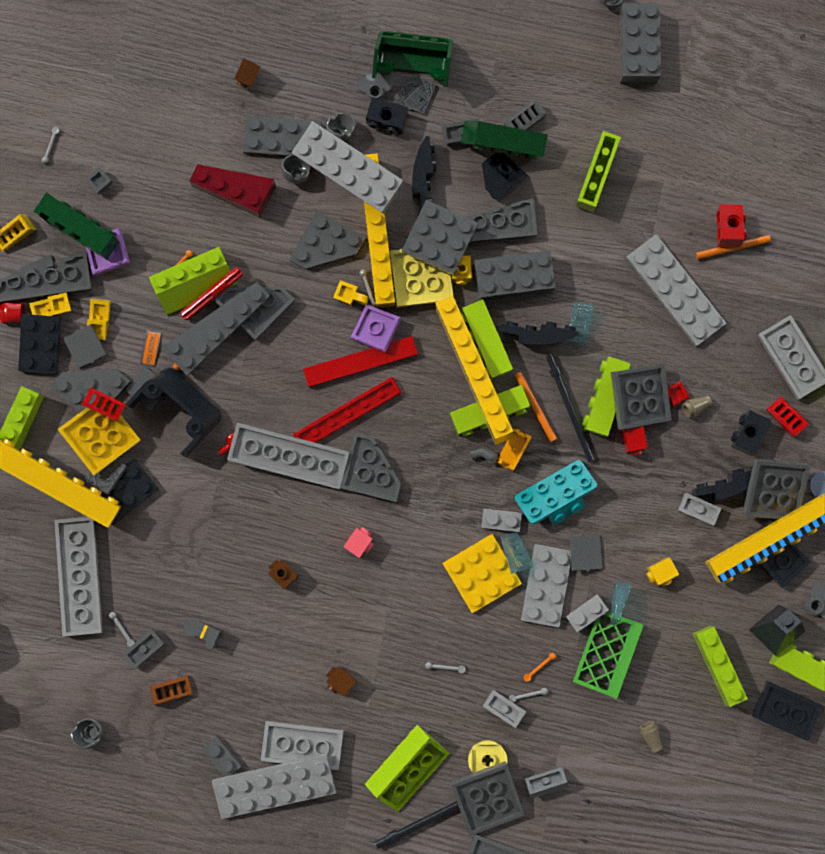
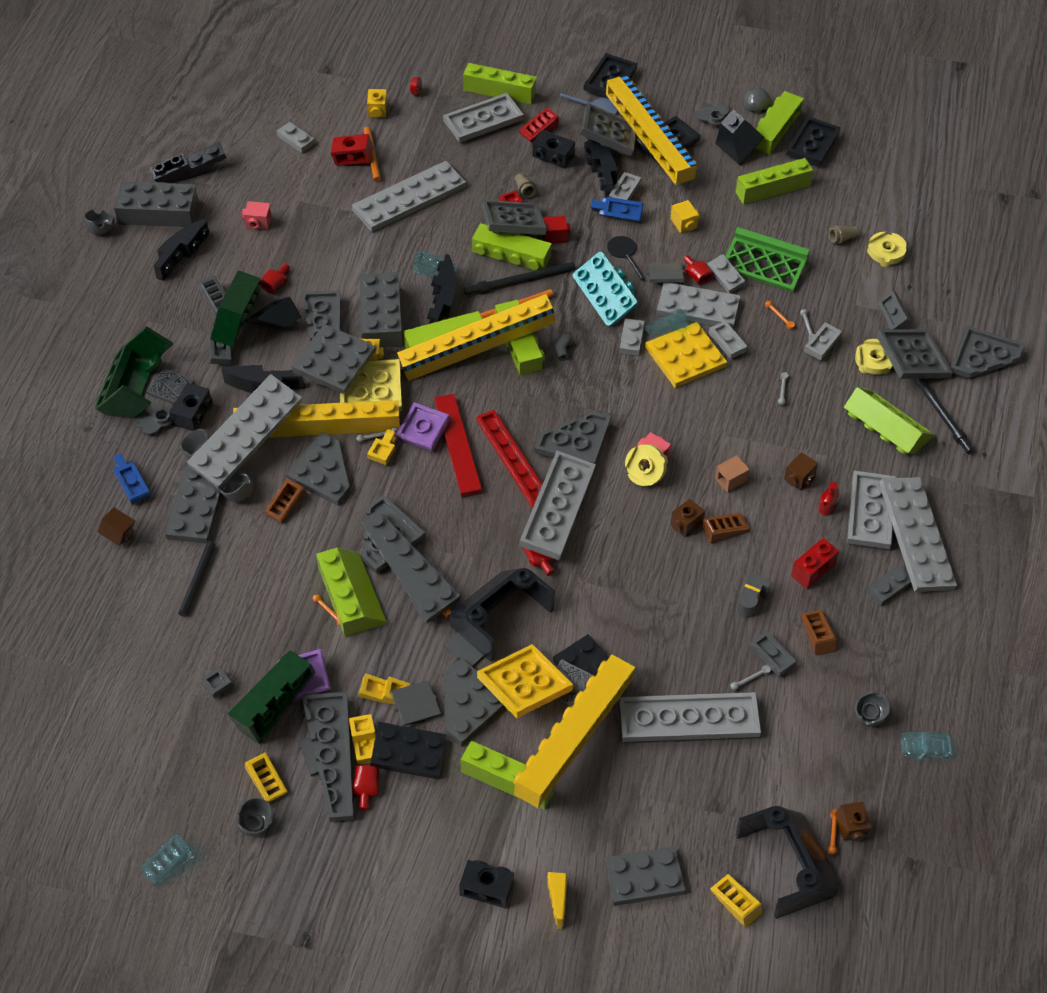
camera: 85 degrees left, 30 degrees down
(55, 130) = (145, 731): light grey hinge -> none
(57, 778) = (926, 743): none -> clear light blue slope
(115, 417) = (497, 654): red slope -> none
(150, 348) = (423, 640): orange sticker -> none
(204, 149) = (196, 578): none -> black bar
(211, 293) = (368, 570): red axle -> none
(235, 188) = (249, 545): dark red wedge -> none
(236, 689) = (814, 563): none -> red brick
(266, 597) = (717, 535): none -> dark orange slope
(299, 219) = (299, 494): none -> dark orange slope
(303, 75) = (130, 480): none -> blue hinge
(308, 705) = (829, 499): none -> red piece
(335, 617) = (732, 473): none -> nougat brick
(344, 531) = (657, 462): none -> light yellow plate
(500, 614) = (728, 339): none -> light grey plate
(513, 450) = (567, 320): light orange hinge -> none
(553, 171) = (274, 279): none -> red piece
(591, 78) = (180, 244): none -> black slope
(592, 585) = (698, 270): none -> red piece
(598, 171) = (283, 239): lime brick -> none
(619, 599) = (710, 246): clear light blue slope -> none
(620, 508) = (623, 248): none -> black piece
(632, 143) = (257, 215): none -> coral brick
(634, 792) = (884, 256): none -> light yellow plate
(669, 503) = (619, 209): none -> blue hinge
(697, 66) = (182, 168): none -> black slope
(751, 167) = (295, 137): none -> light grey plate
(804, 244) = (377, 103): none -> yellow brick

